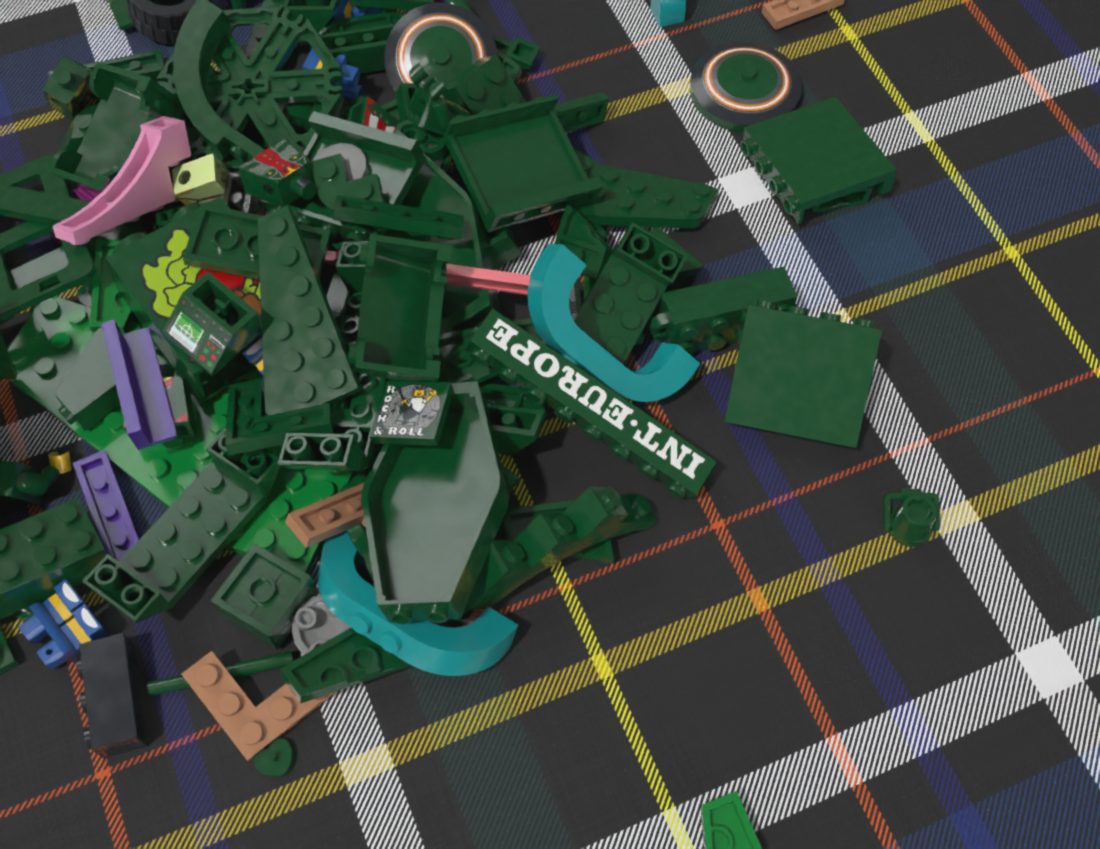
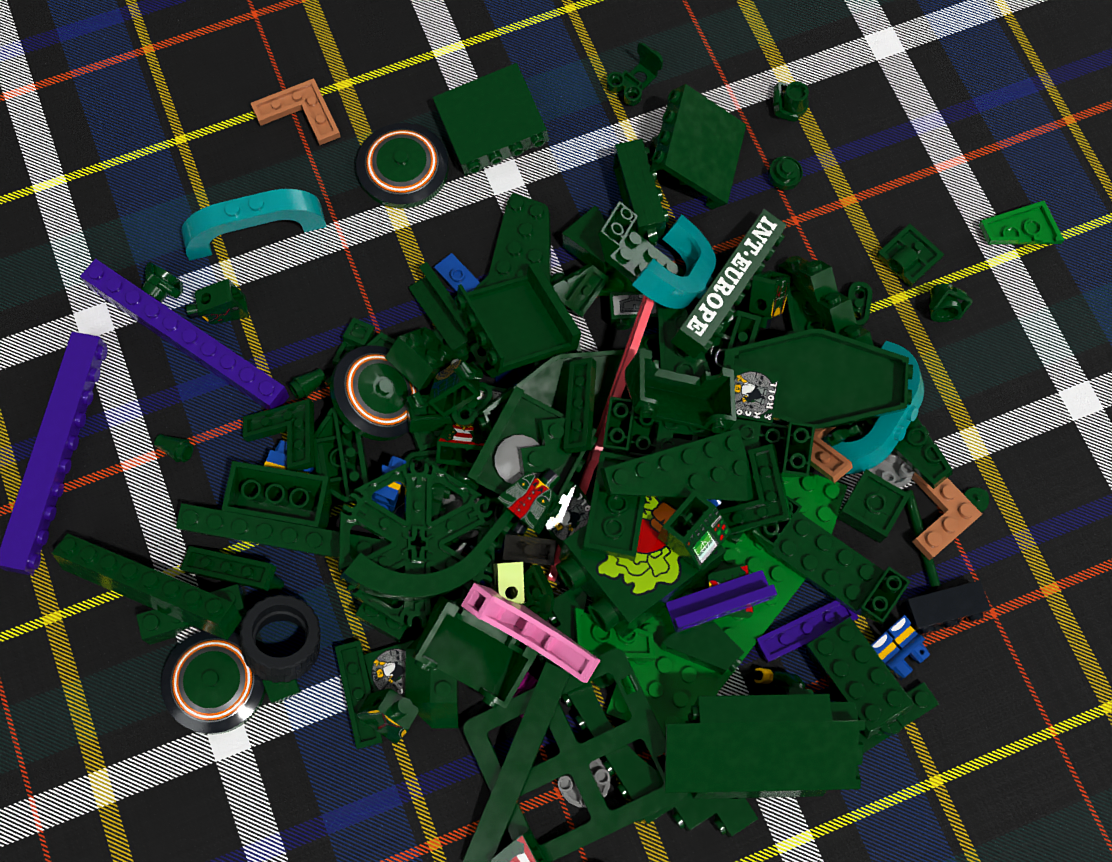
camera: 90 degrees left, 10 degrees up
(582, 463) = (769, 295): none -> dark green torso
(582, 595) = (861, 306): none -> dark green plate
(587, 722) = (945, 304): none -> dark green piece
(603, 140) = (455, 273): none -> blue plate
(668, 678) = (910, 255): none -> dark green plate
(788, 505) = (785, 173): none -> dark green plate
(902, 316) = (649, 64): none -> dark green piece

